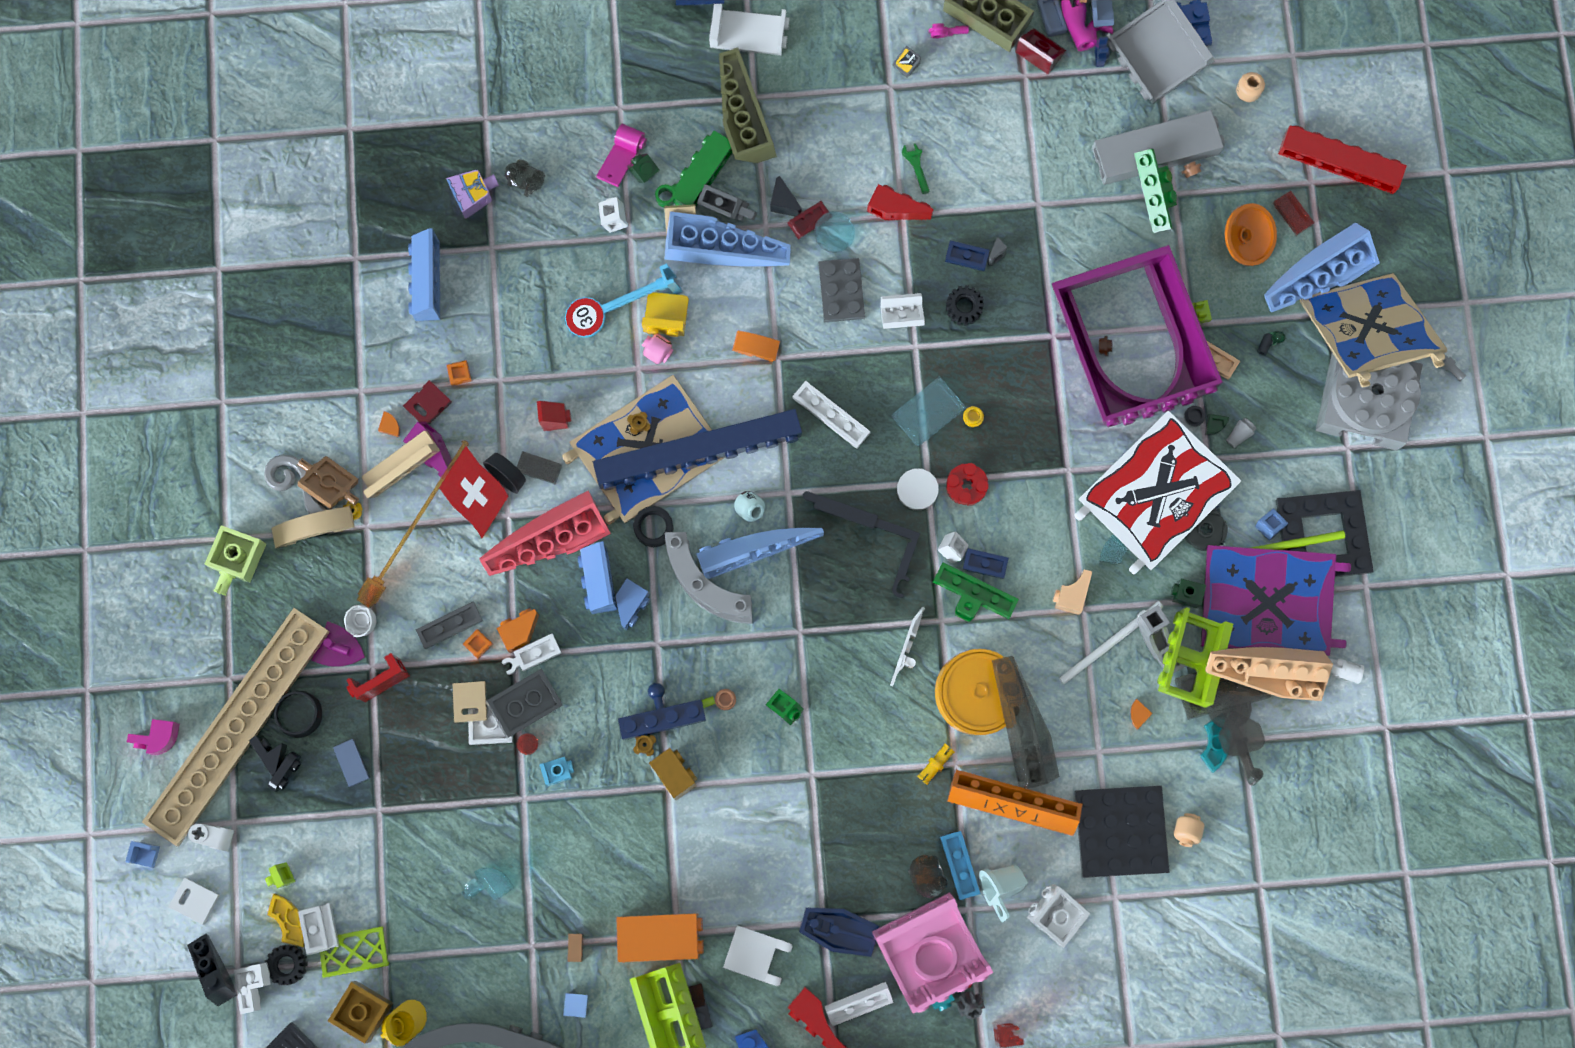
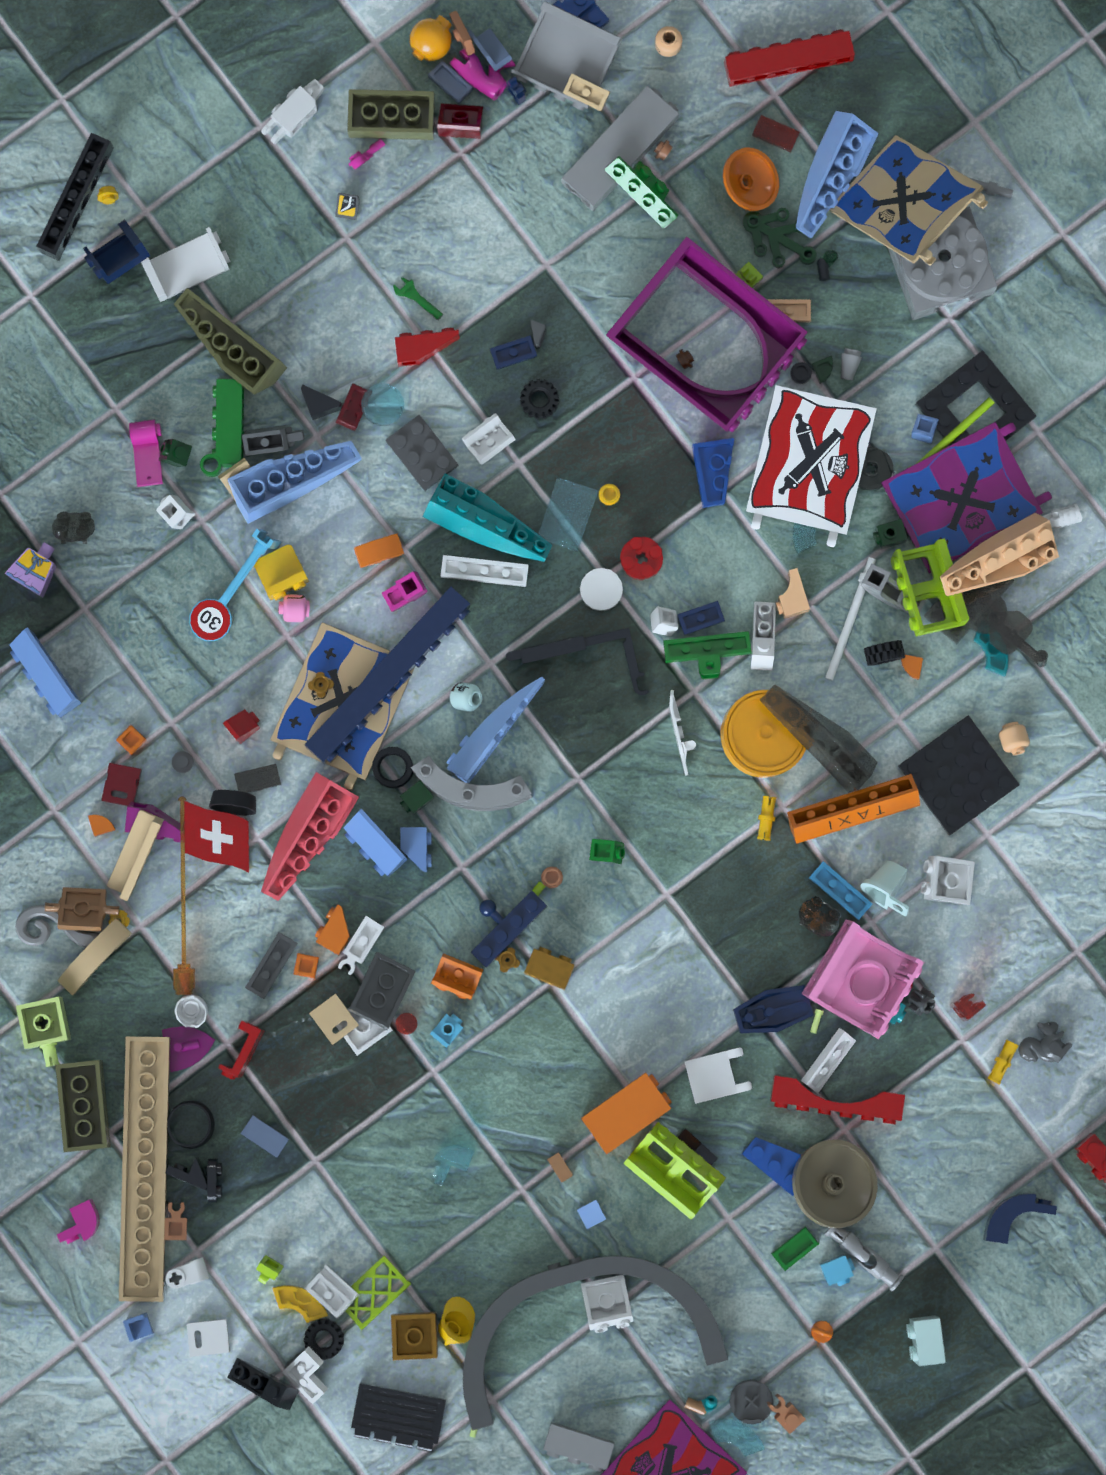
camera: 30 degrees left, 5 degrees up
(220, 642) = (83, 1106): none -> olive brick
(229, 790) = (175, 1226): none -> nougat plate
(487, 415) = (182, 762): none -> dark grey plate
(593, 732) = (457, 977): none -> orange bracket
(655, 563) = (416, 798): none -> dark green brick
(757, 390) = (405, 591): none -> dark pink brick
(855, 372) = (483, 520): none -> teal wedge
(876, 958) = (818, 1013): none -> yellowish green piece
(1028, 611) = (763, 636): none -> white slope
(1071, 449) = (712, 469): none -> blue wing
(1122, 688) = (884, 652): none -> black tyre
(1158, 86) = (586, 92): none -> tan plate
(1242, 293) = (776, 236): none -> dark green plant

